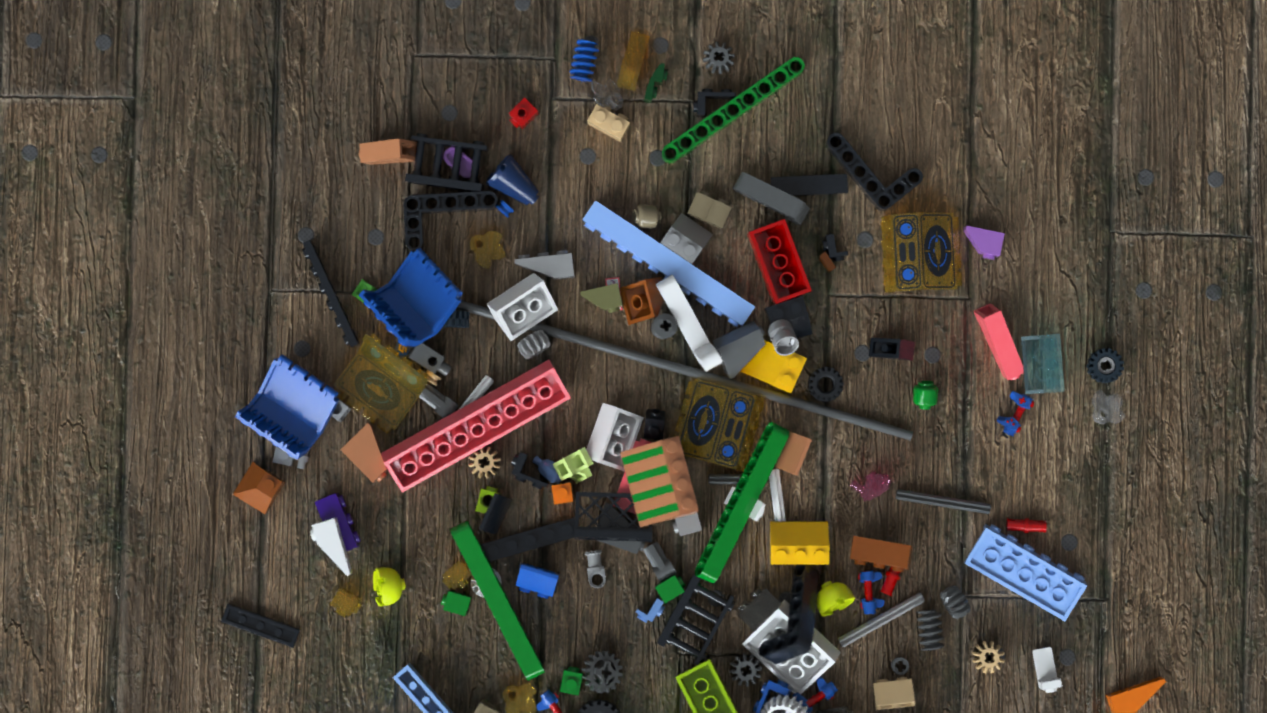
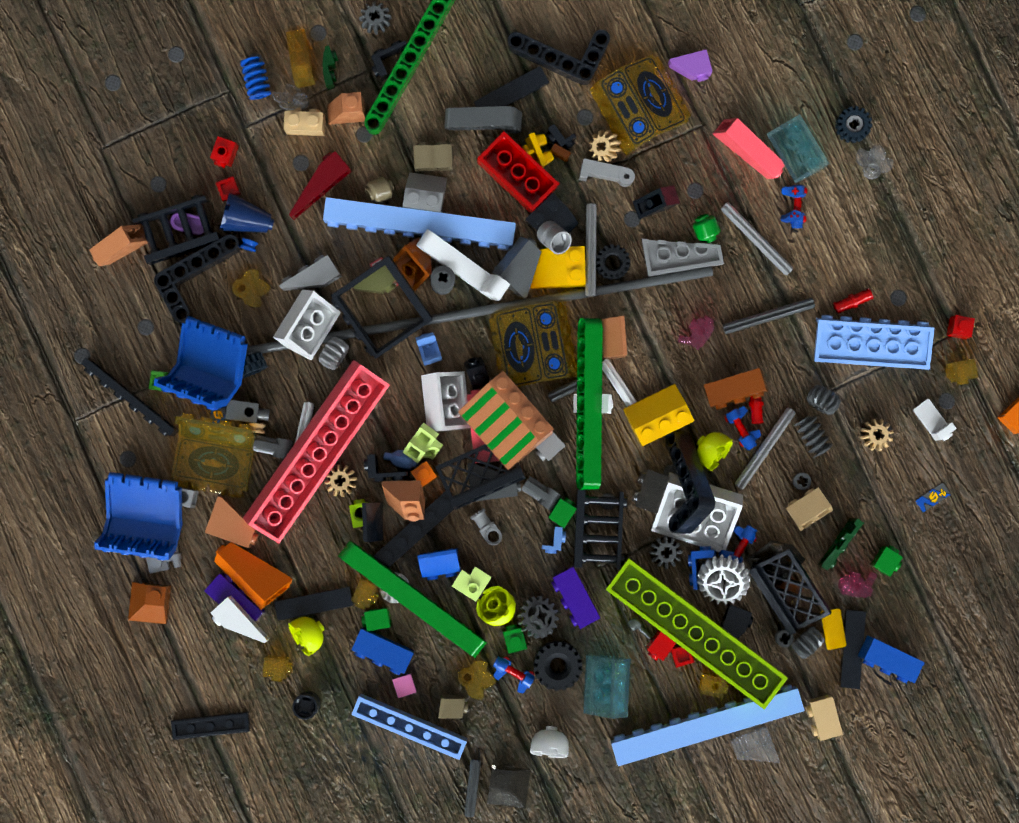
camera: 20 degrees left, 0 degrees up
(356, 649) = (306, 705): none -> black wheel
(363, 507) = (252, 575): none -> orange slope
(406, 561) = (313, 603): none -> black tile
(447, 634) = (382, 651): none -> blue brick
(452, 674) = (404, 685): none -> bright pink tile
(510, 146) = (227, 186): none -> red tile
(535, 507) = (405, 498): none -> nougat slope
(557, 613) = (472, 584): none -> yellowish green brick
(566, 336) = (360, 332): none -> black window
(569, 644) = (496, 606): none -> neon yellow cylinder
(606, 180) = (327, 175): none -> dark red slope
(621, 382) = (428, 348): none -> medium blue bracket
(644, 671) = (575, 597): none -> dark purple brick
(652, 129) = (347, 109): none -> nougat slope
(804, 247) = (533, 148): none -> yellow hips
(811, 363) = (590, 287): none -> light grey axle
(872, 309) = (606, 171): none -> light grey leg
(875, 277) = (598, 146): none -> tan gear
(883, 406) = (672, 257): none -> light grey wing
(966, 426) = (756, 238): none -> light grey axle
(1093, 637) = (962, 371): none -> clear yellow brick
(1111, 596) = (960, 327): none -> red brick

